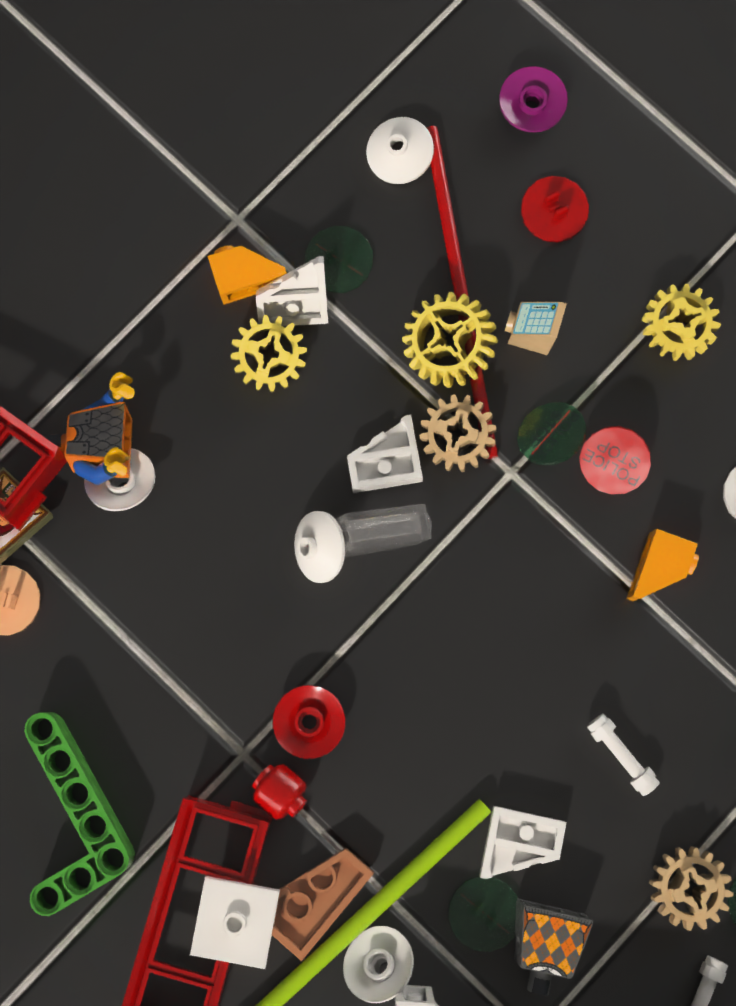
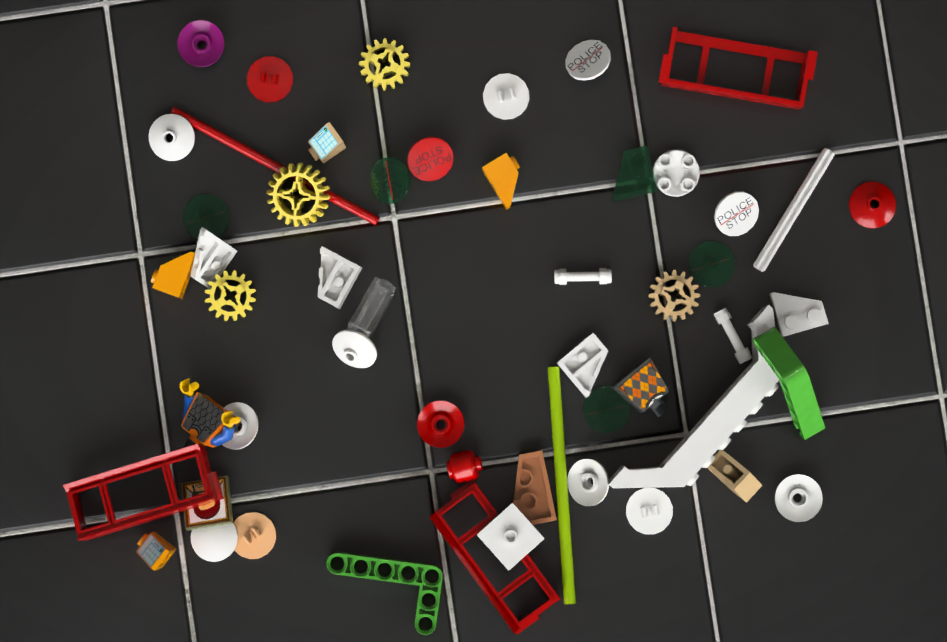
camera: 45 degrees left, 5 degrees up
(442, 429) = (360, 223): tan gear -> none

